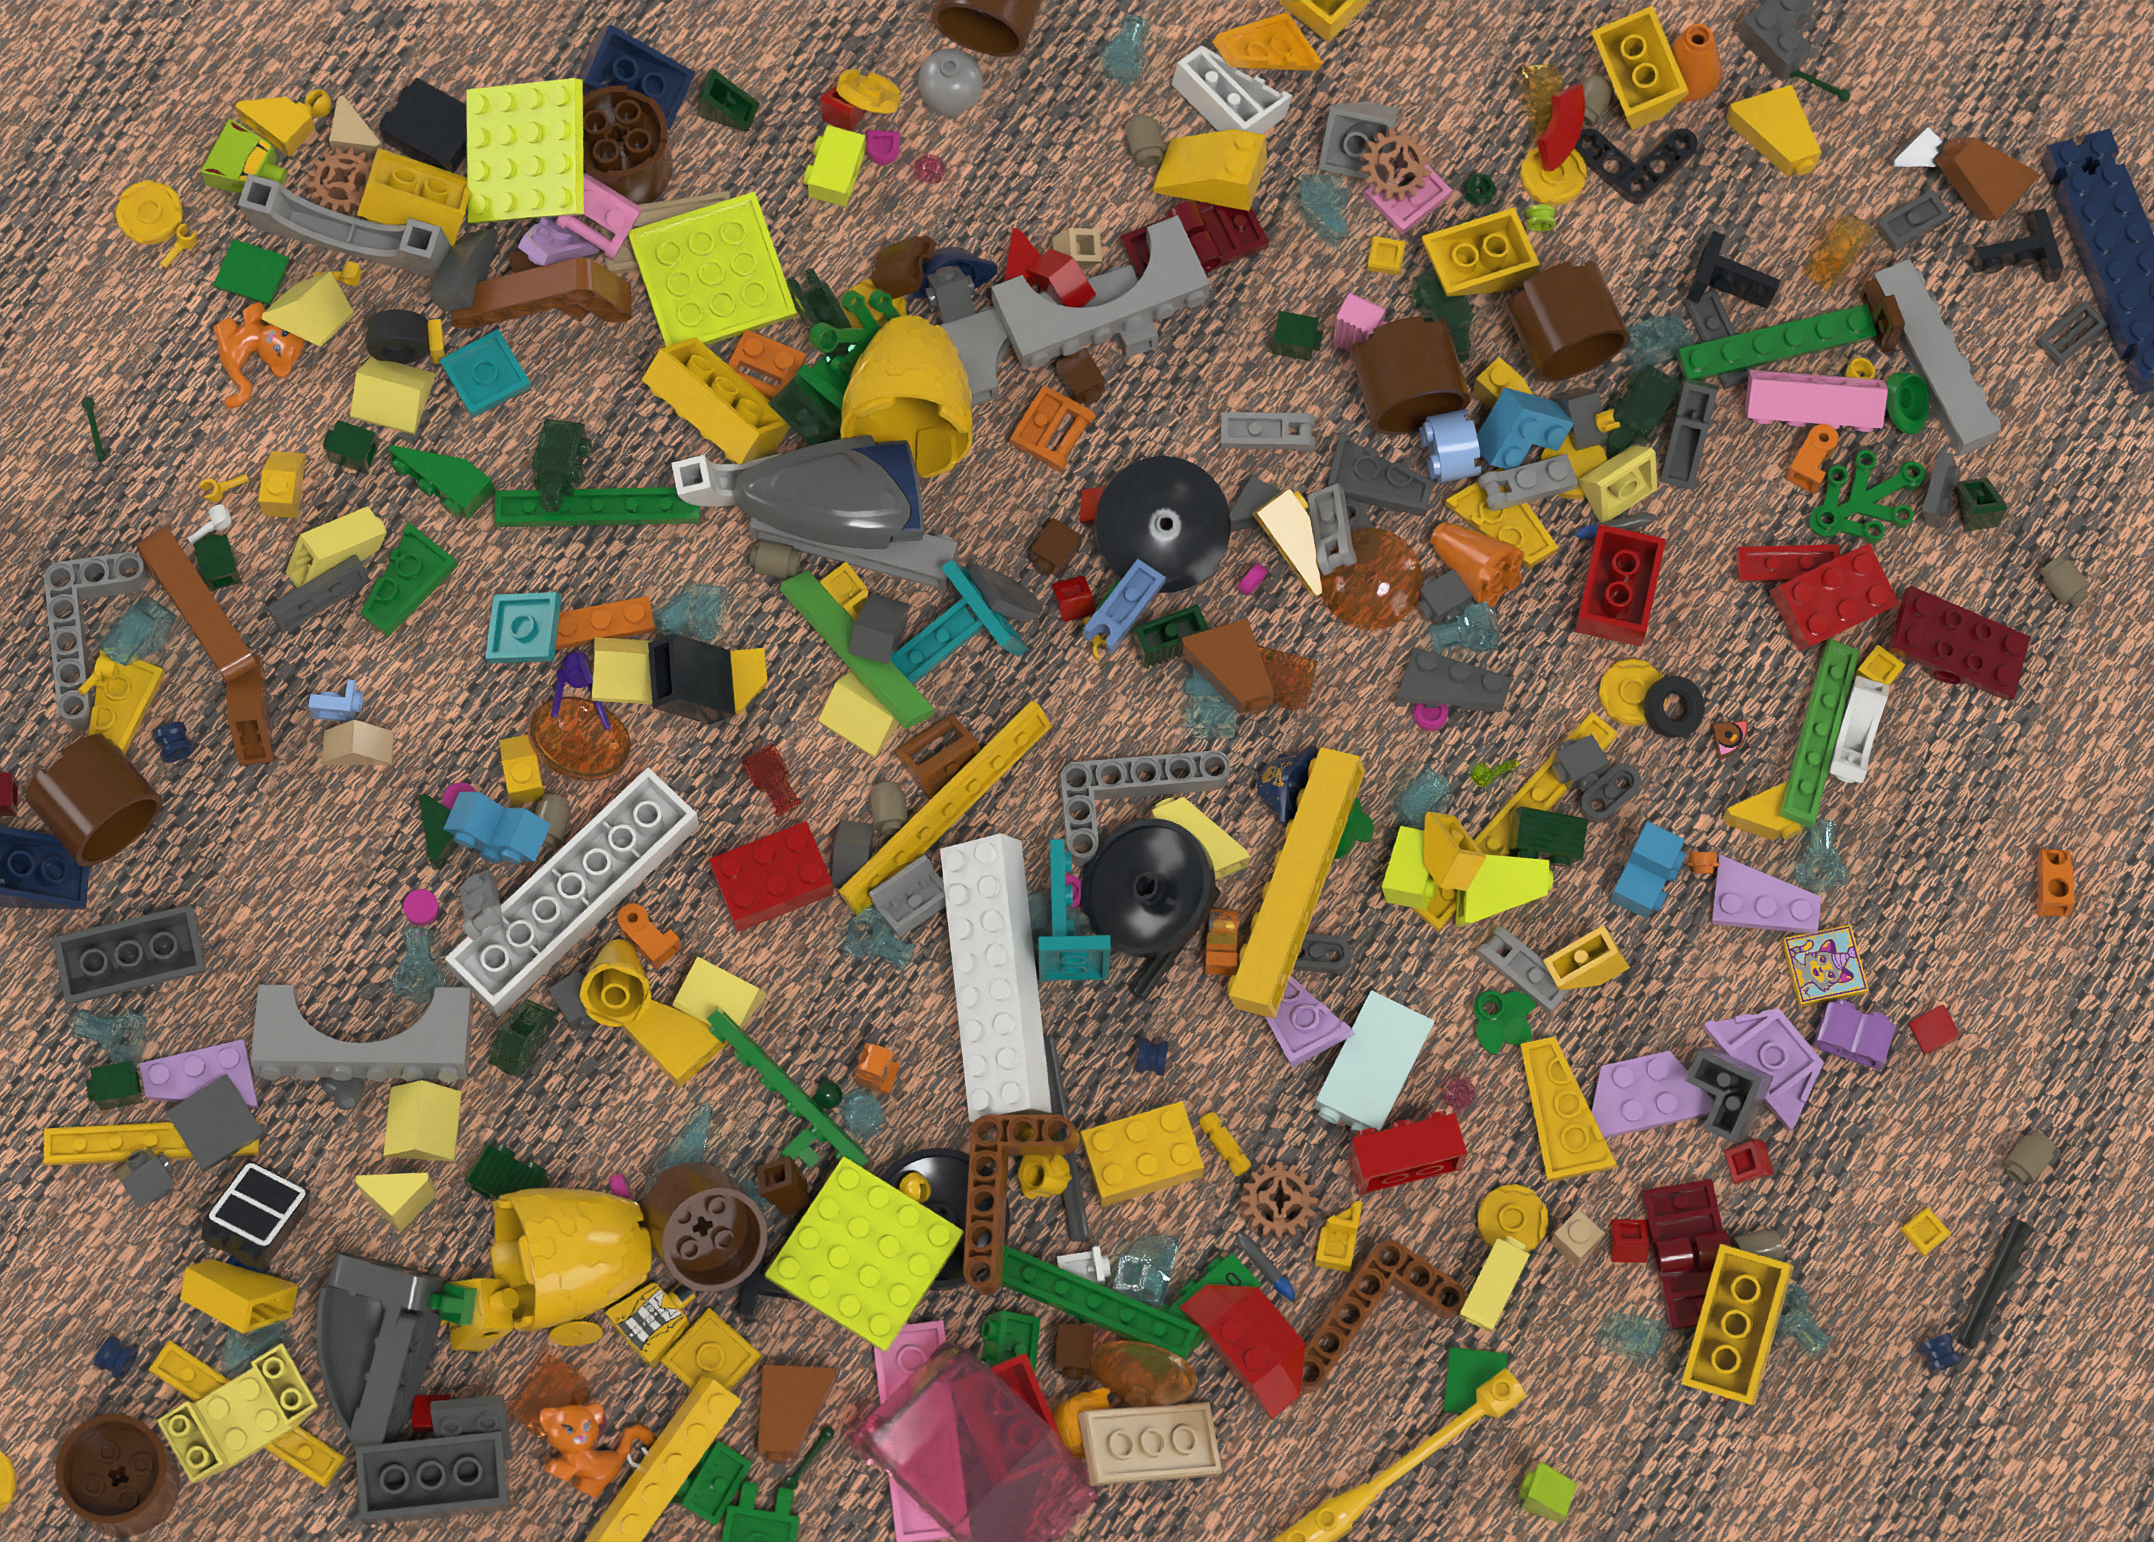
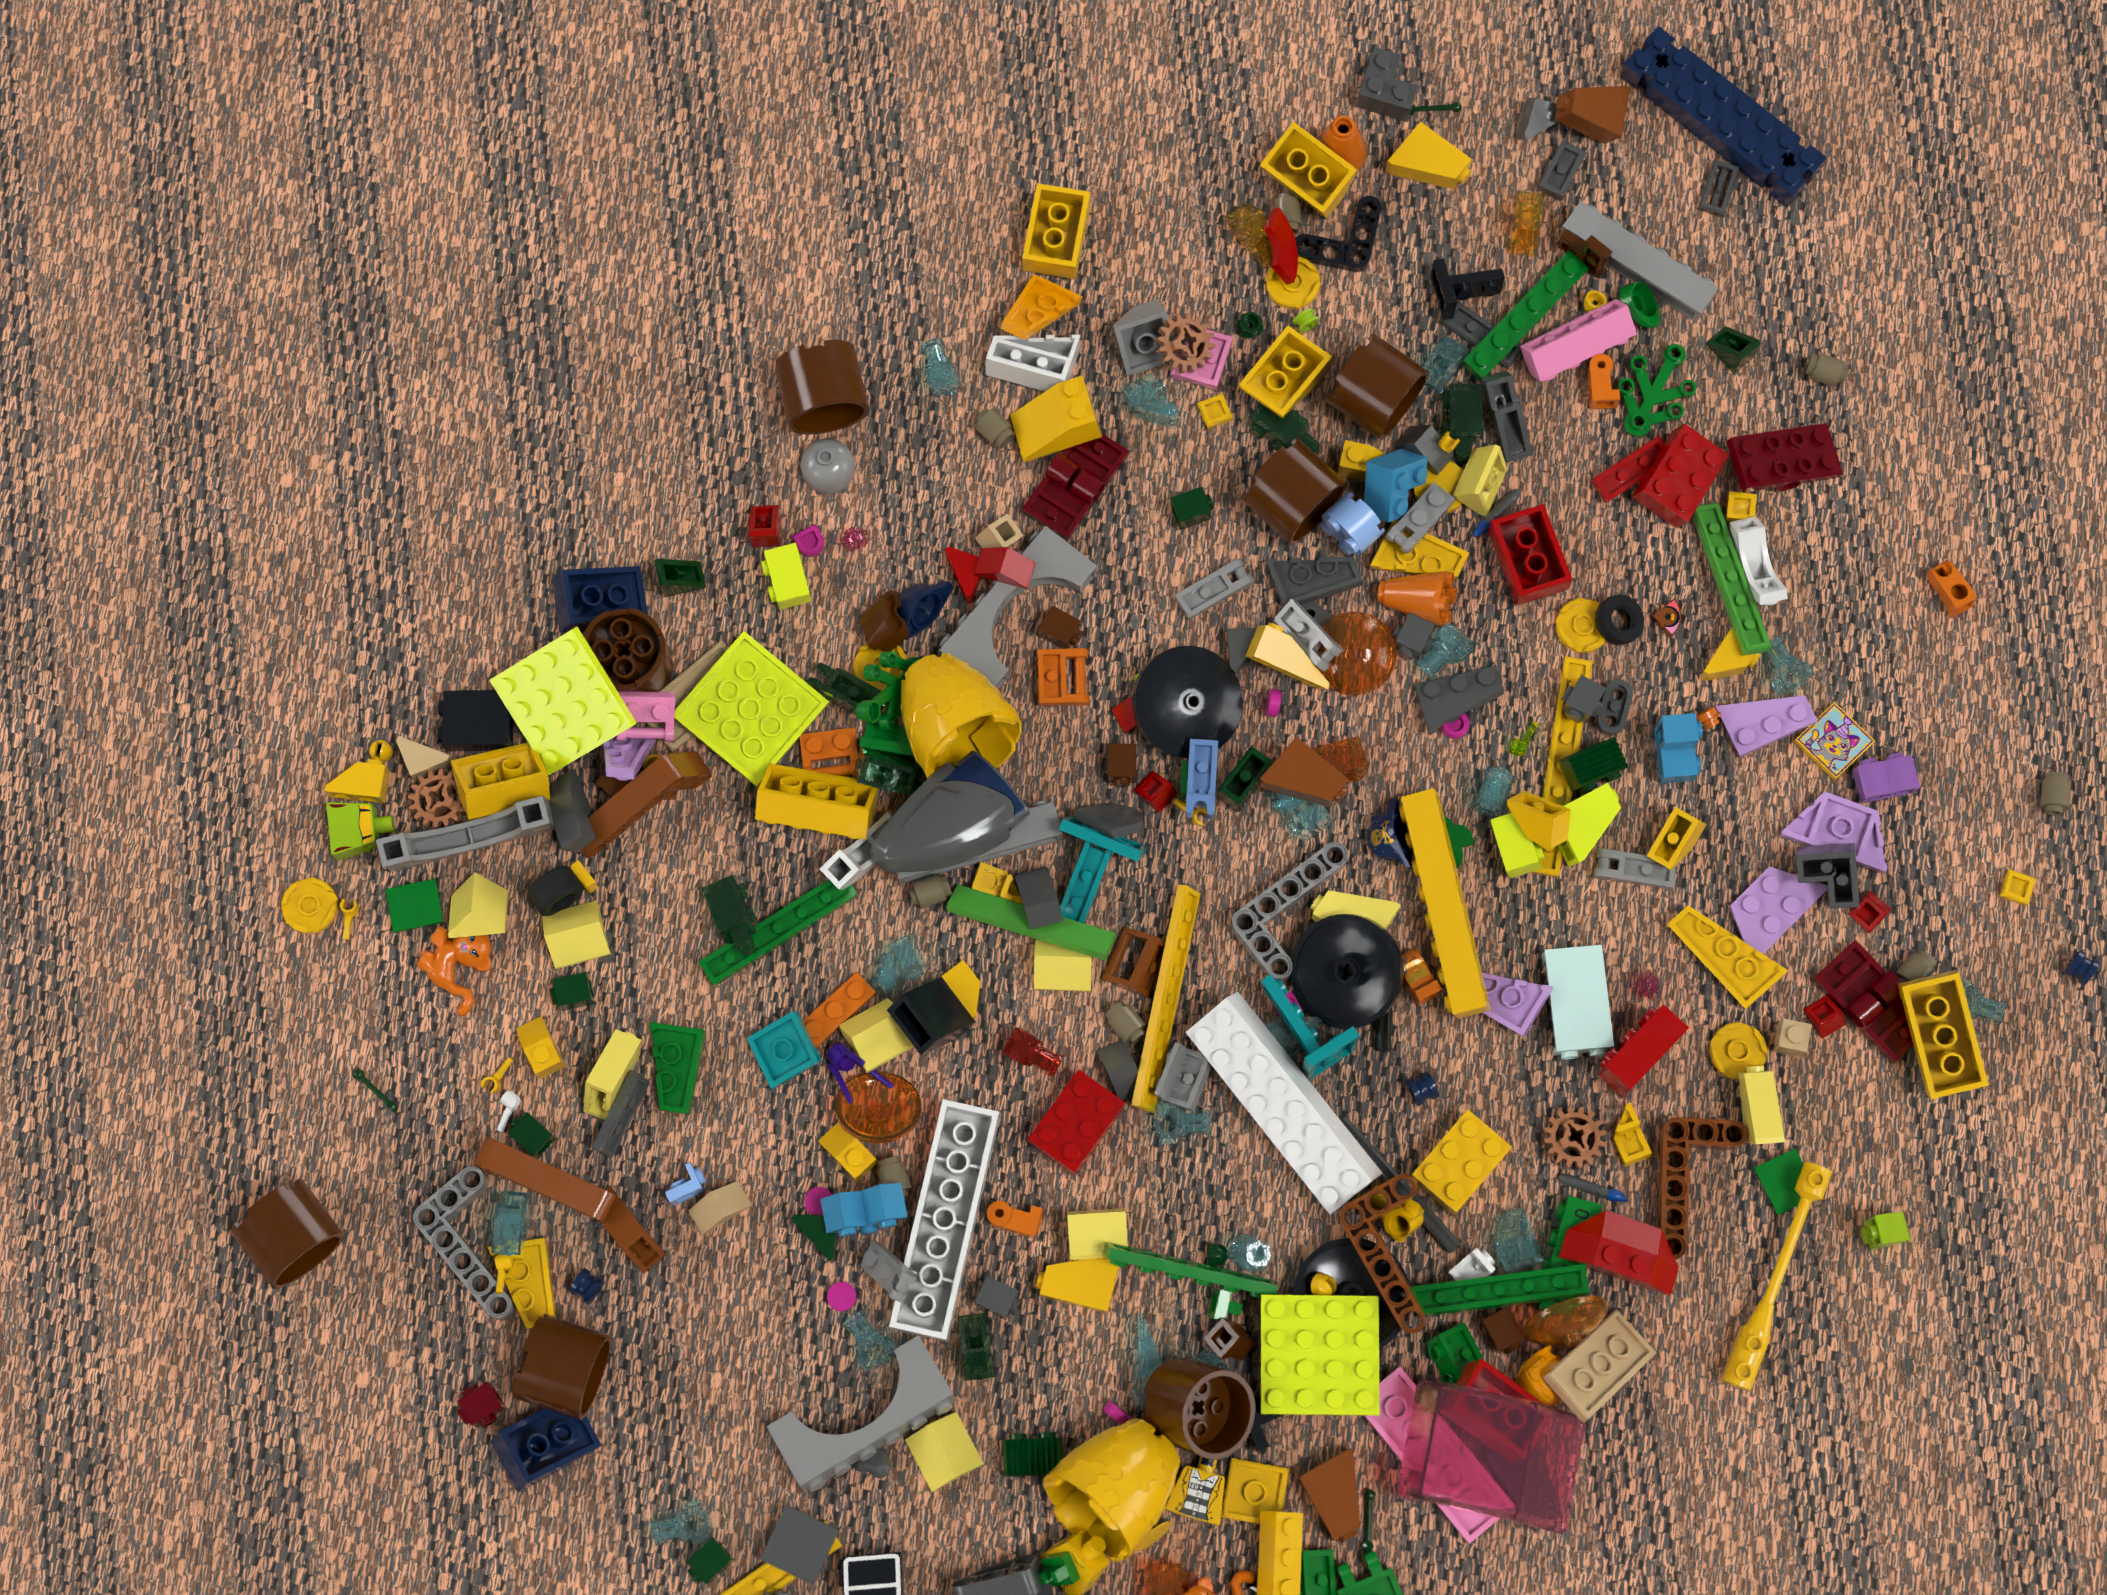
camera: 25 degrees left, 5 degrees up
(130, 954) = (661, 1462): dark grey slope -> none
(187, 1073) = (759, 1516): lavender wing -> none
(349, 276) = (487, 865): yellow hand -> none
(397, 1195) = (964, 1519): light yellow slope -> none
(450, 478) = (661, 972): green slope -> none
(485, 373) = (633, 879): teal plate -> none
(616, 986) = (1022, 1269): yellow cone -> none
(869, 93) = (776, 508): yellow tile -> none
(877, 1069) = (1239, 1216): orange leg -> none
(950, 293) = (932, 623): dark grey brick -> none
(1046, 330) = (1017, 610): light grey arch -> none
(1225, 1144) = (1510, 1119): yellow axle -> none
(1316, 949) = (1485, 942): dark grey plate -> none
(1356, 321) = (1234, 475): bright pink brick -> none
(1507, 1023) = (1646, 913): green plate -> none
(1631, 1336) = (1871, 1084): clear light blue slope -> none
(1934, 1029) = (1935, 741): red slope -> none
(1938, 499) = (1706, 364): dark grey plate -> none
(1993, 1284) = (2085, 896): pearl dark grey axle -> none
(2024, 251) = (1661, 139): black bracket -> none

